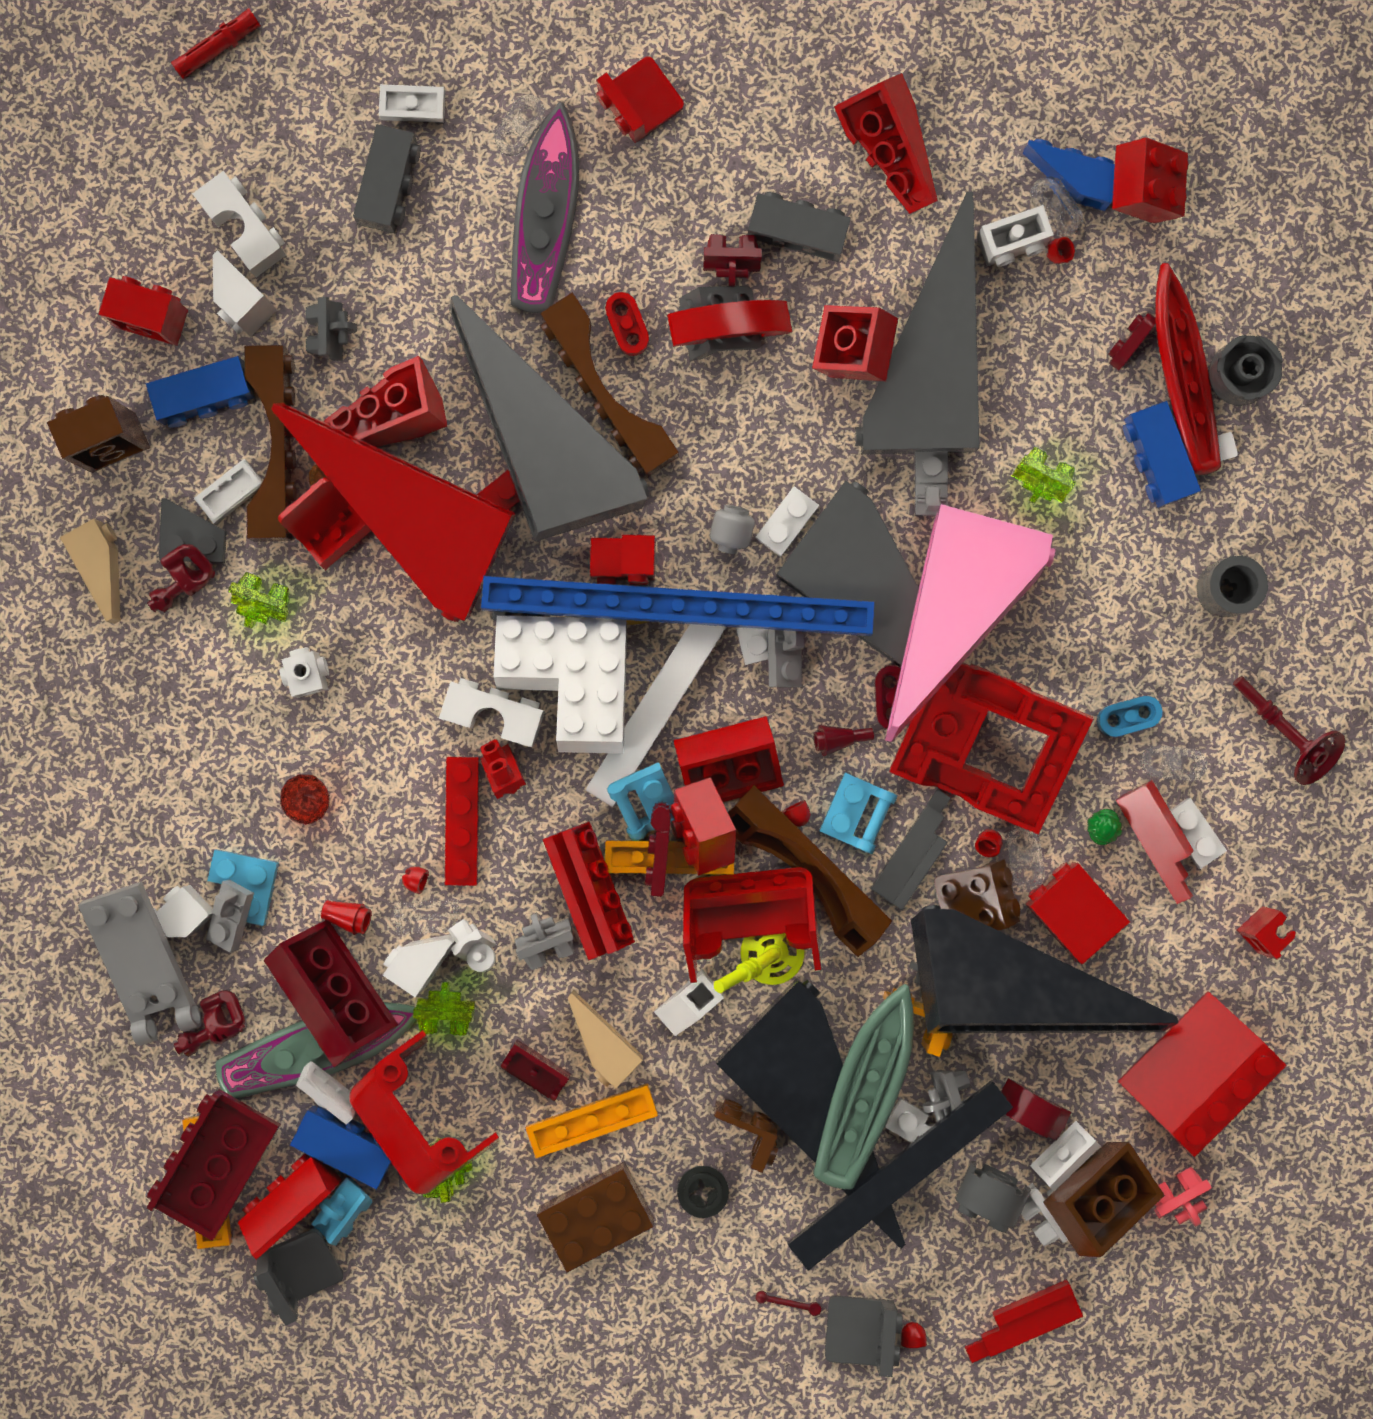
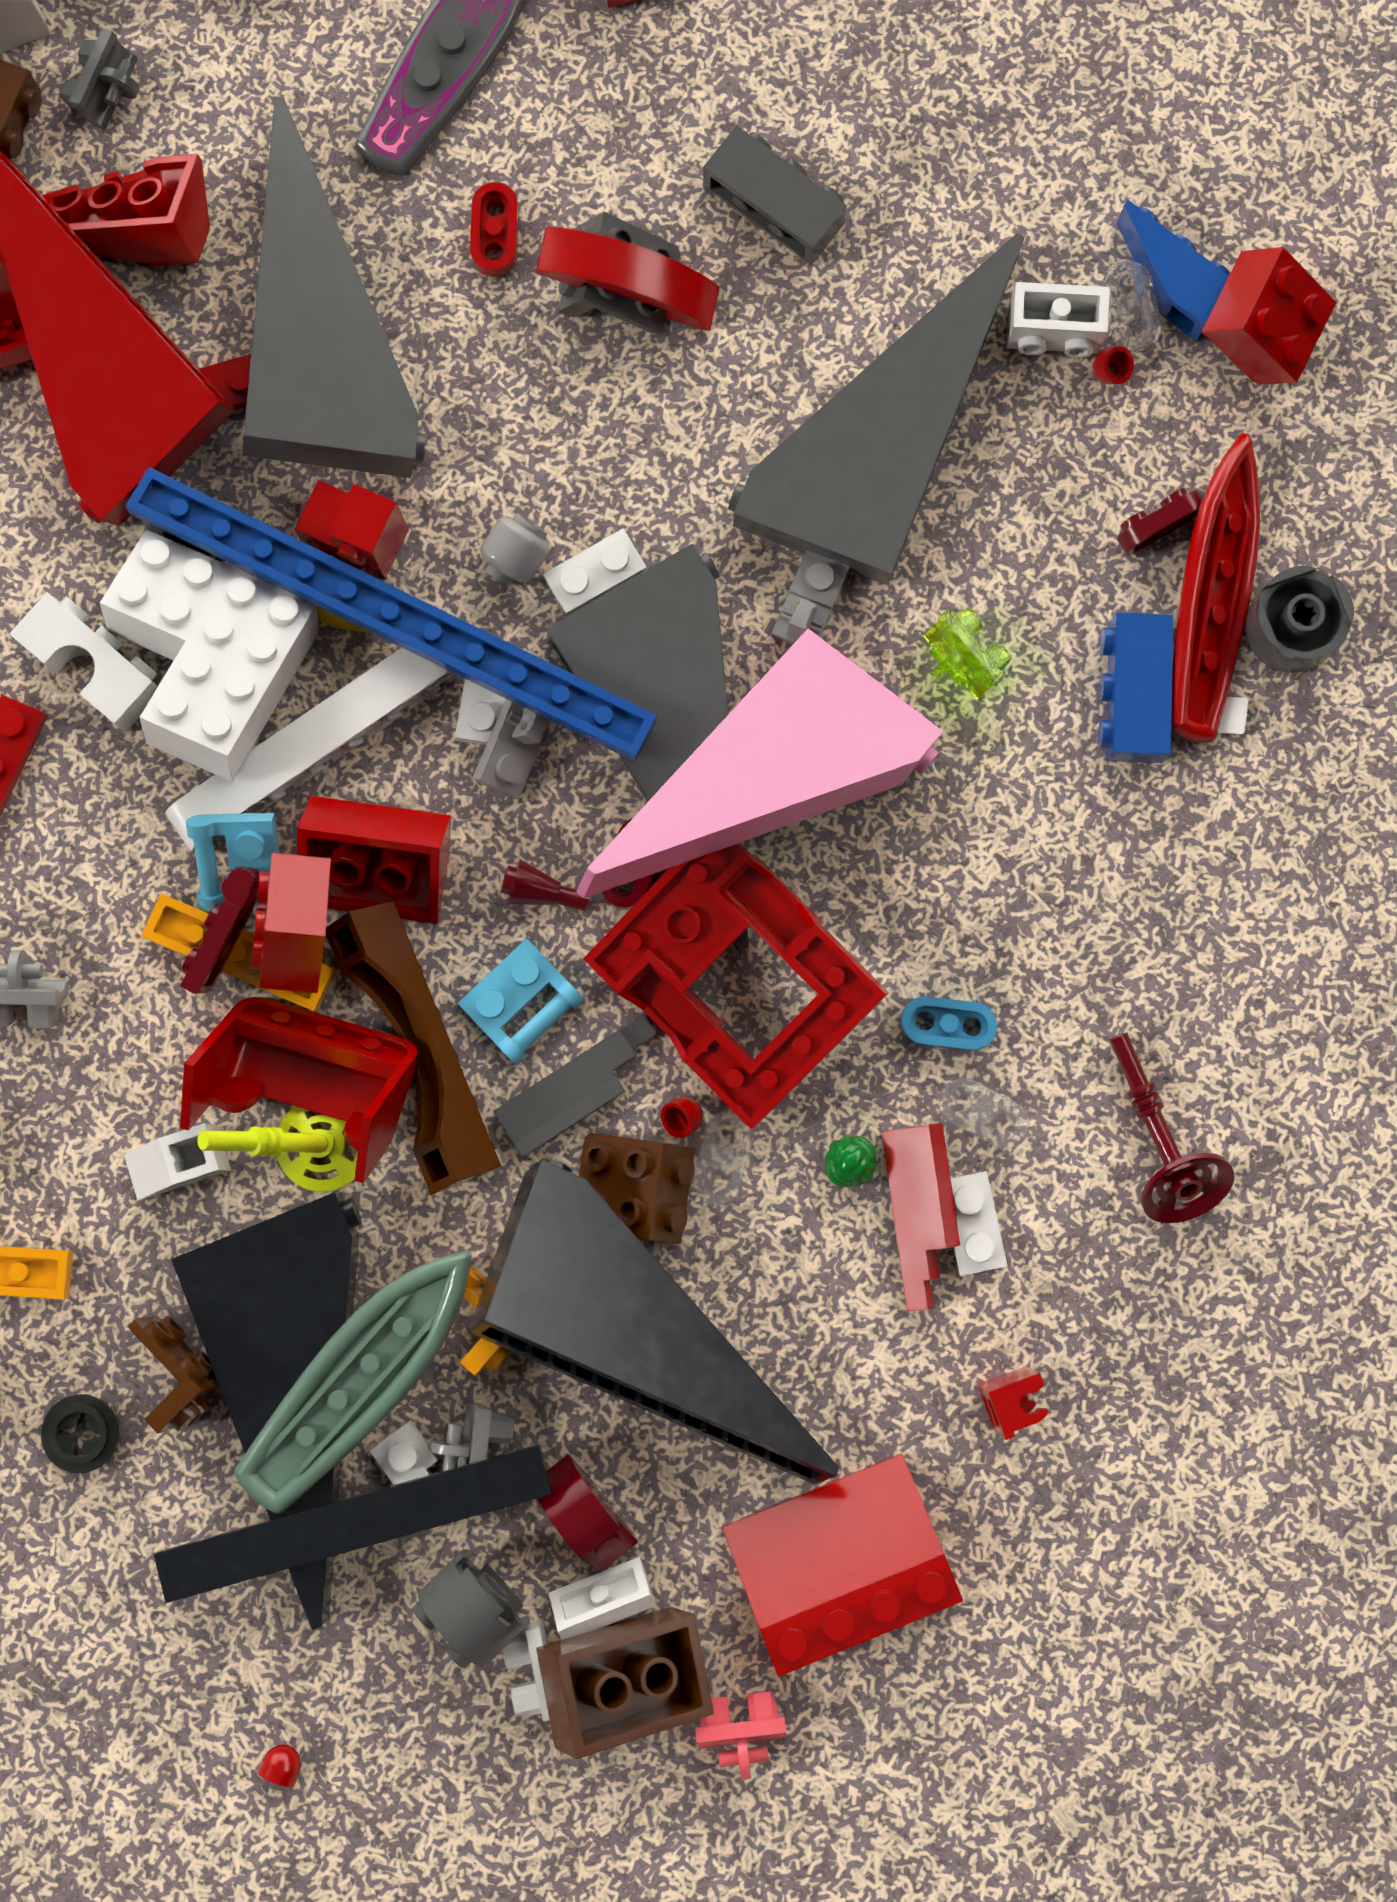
camera: 25 degrees right, 5 degrees down
(501, 768) = (64, 738): red hips -> none
(589, 891) = (106, 949): red brick -> none
(607, 1049) = (34, 1173): tan slope -> none
(645, 440) = (418, 213): reddish brown arch -> none
(732, 261) = (668, 202): dark red hips -> none
(798, 813) = (438, 968): red hinge -> none
(814, 1308) = (161, 1666): dark red hinge -> none
(855, 342) = (782, 368): red brick -> none
(863, 1332) = (211, 1729): dark grey bracket -> none
(890, 131) = (948, 113): red wedge -> none
(1027, 1320) = (451, 1814): red piece -> none
(1076, 911) = (761, 1261): red brick -> none
(1248, 584) = (1178, 886): dark grey piece -> none

